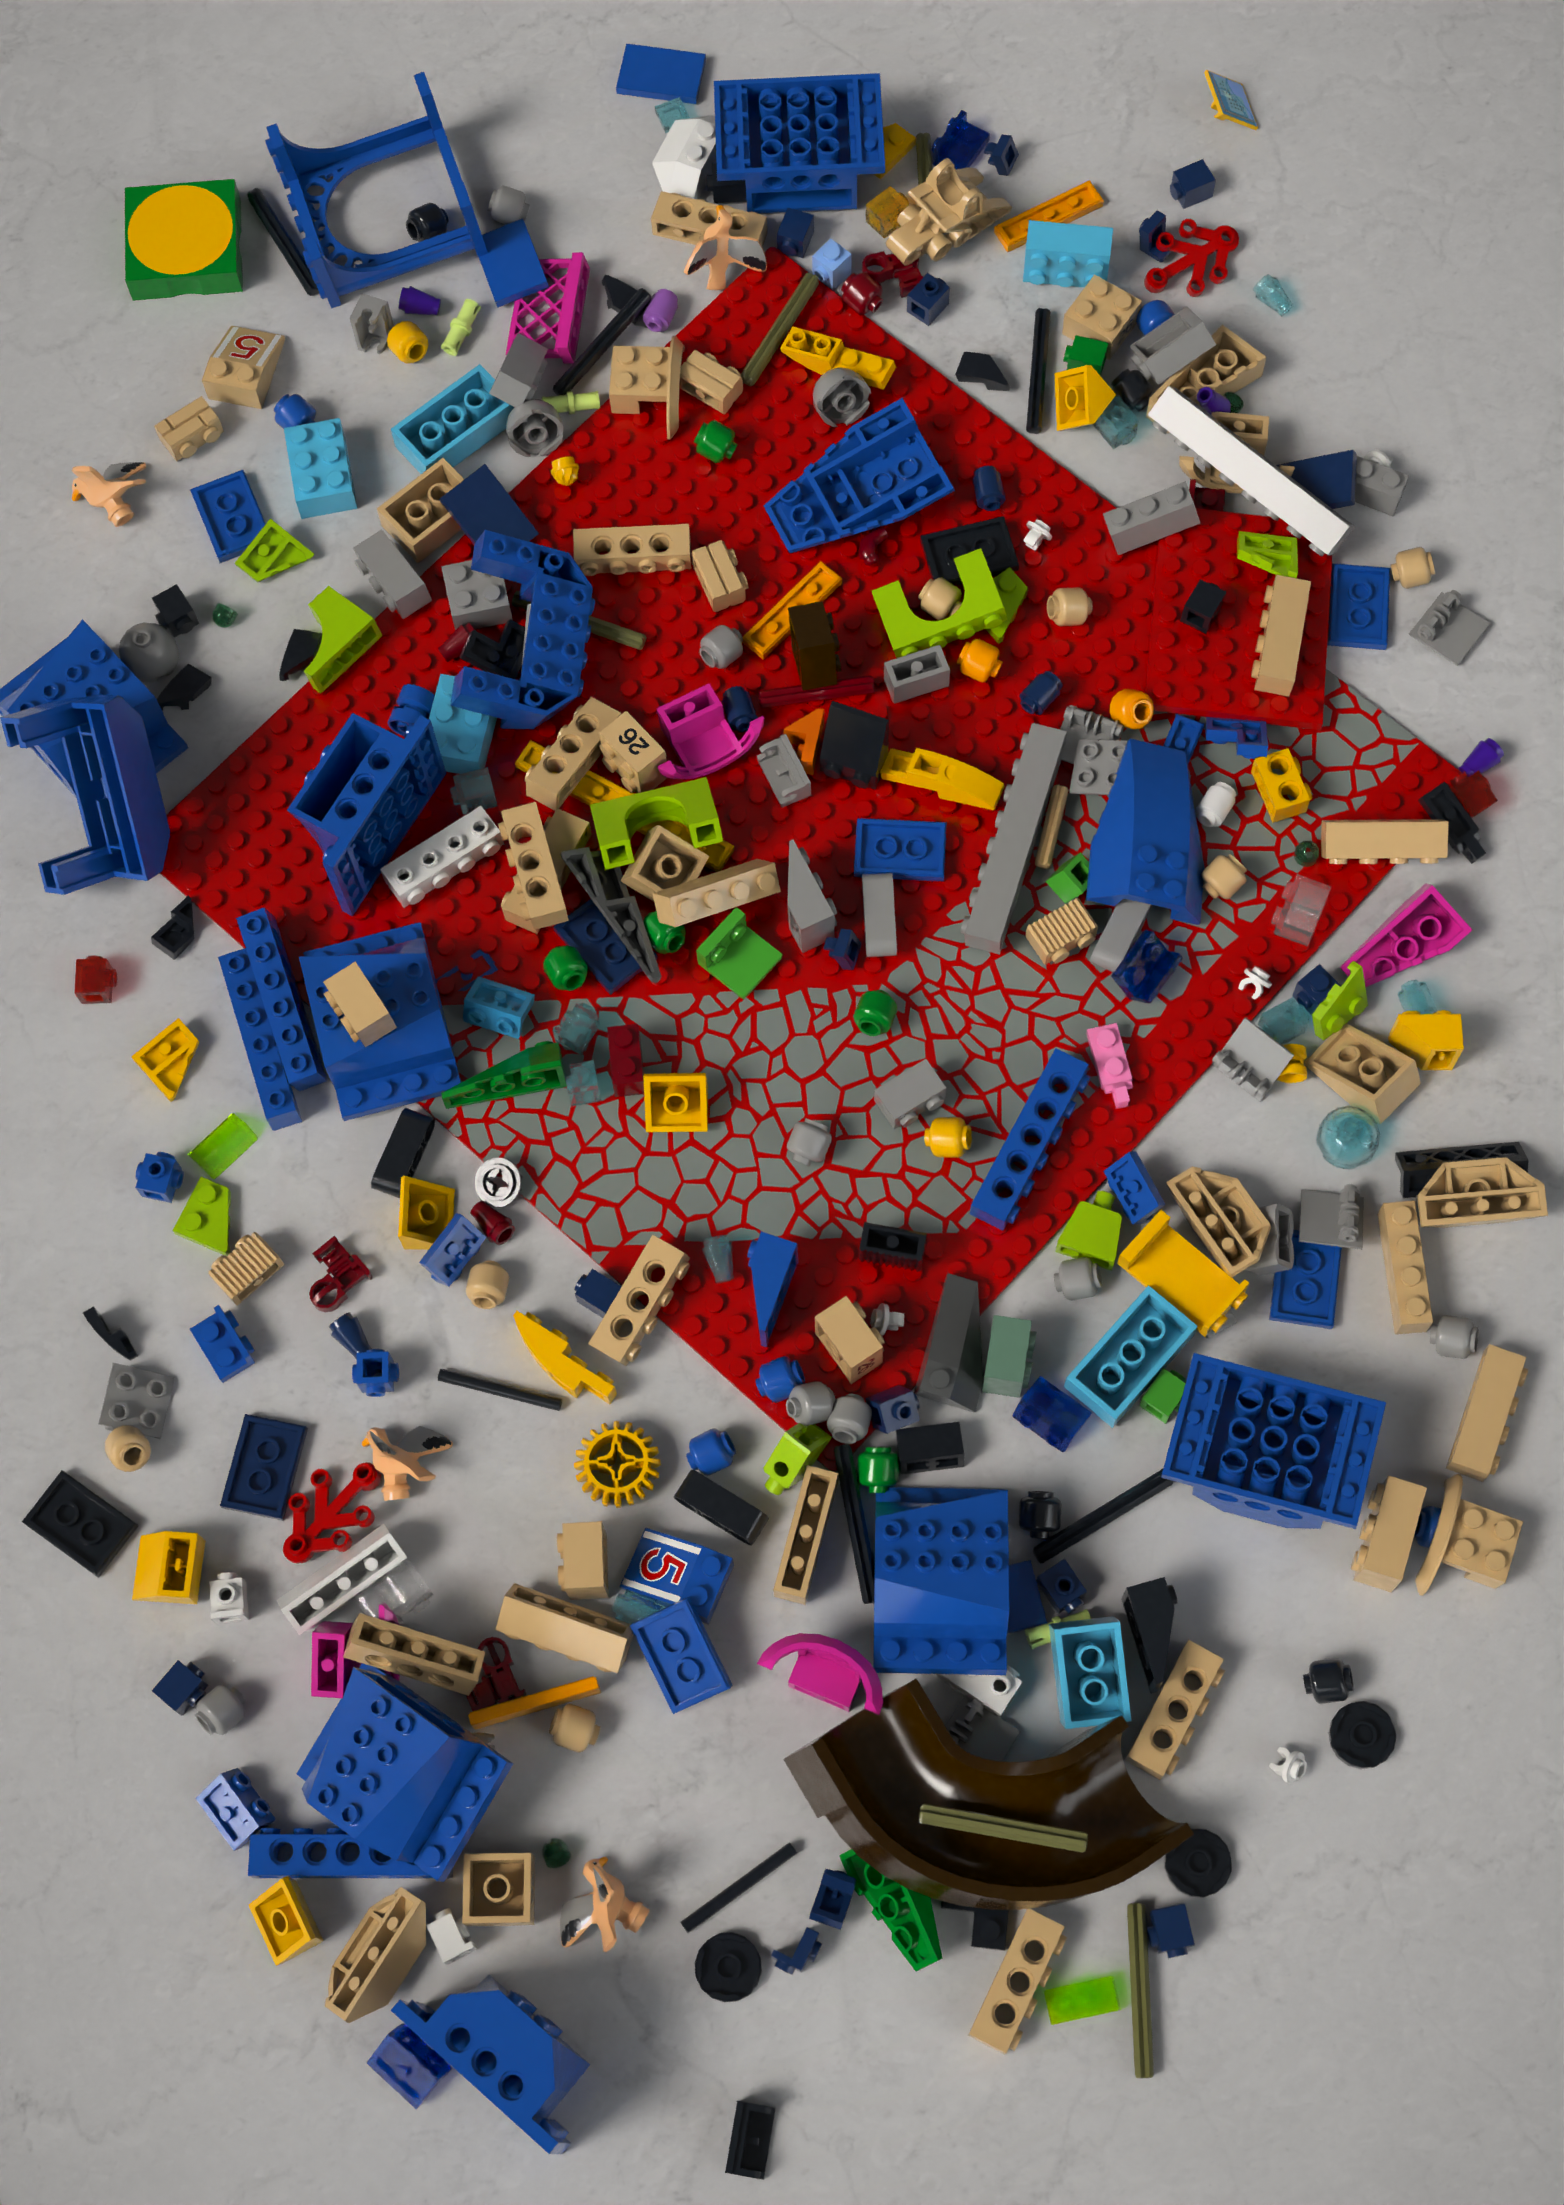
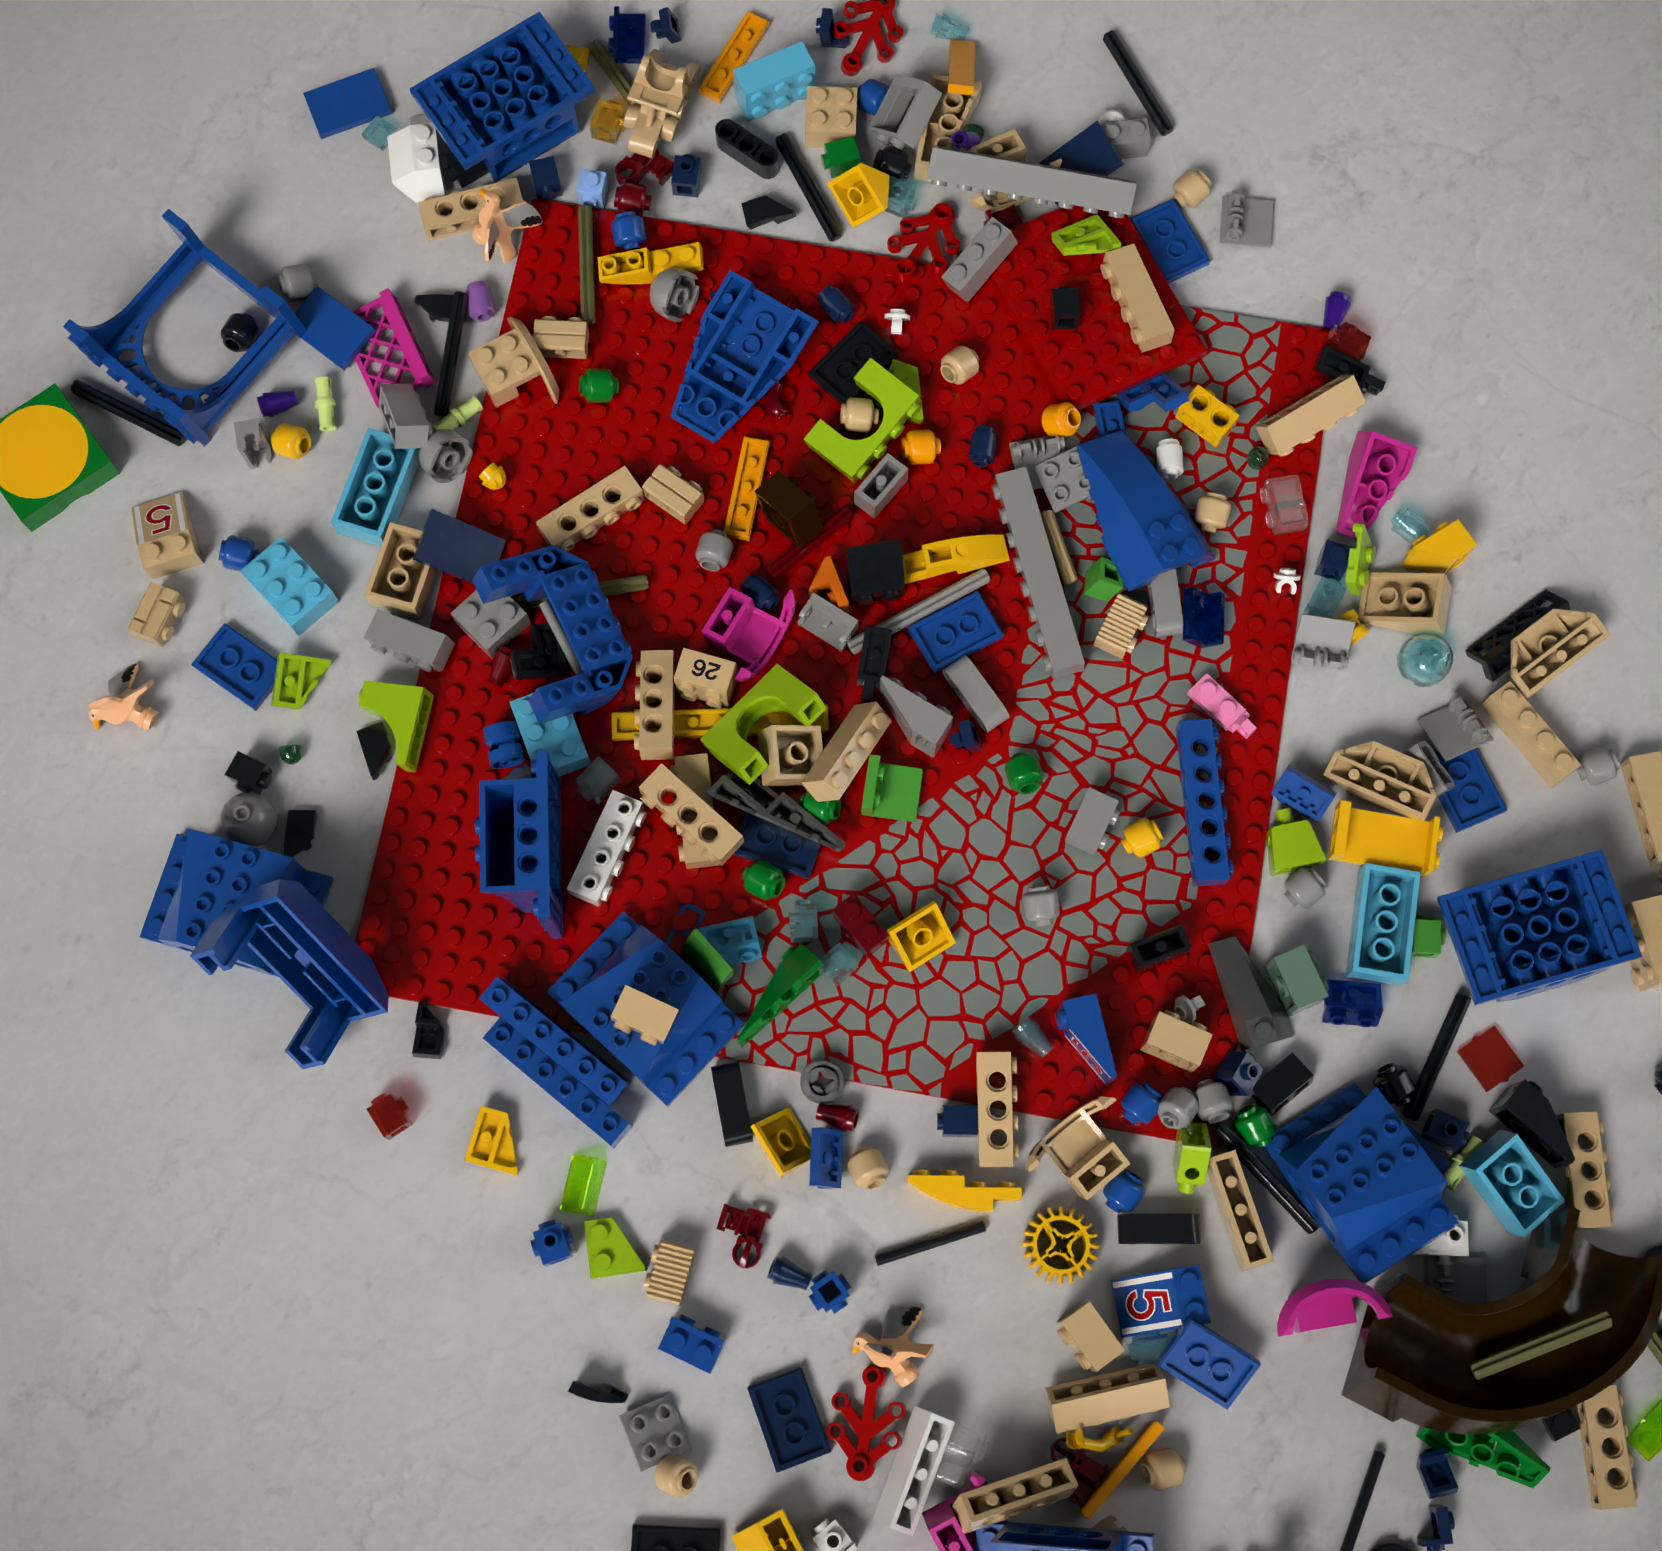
camera: 35 degrees left, 5 degrees up
(461, 1007) = (706, 961): none -> bright green slope
(509, 1646) = (1109, 1439): none -> yellow piece
(693, 1386) = (1081, 1150): none -> tan piece
(802, 826) = (873, 660): none -> black hinge
(838, 317) = (628, 231): none -> blue head
(878, 810) = (927, 606): none -> light grey axle
(1002, 315) = (741, 139): none -> black beam
(1146, 465) = (939, 218): none -> red plant
(1156, 1550) = (1490, 1059): none -> clear red piece
(1255, 333) = (961, 67): none -> light orange tile
(1428, 442) = (1138, 83): none -> black axle

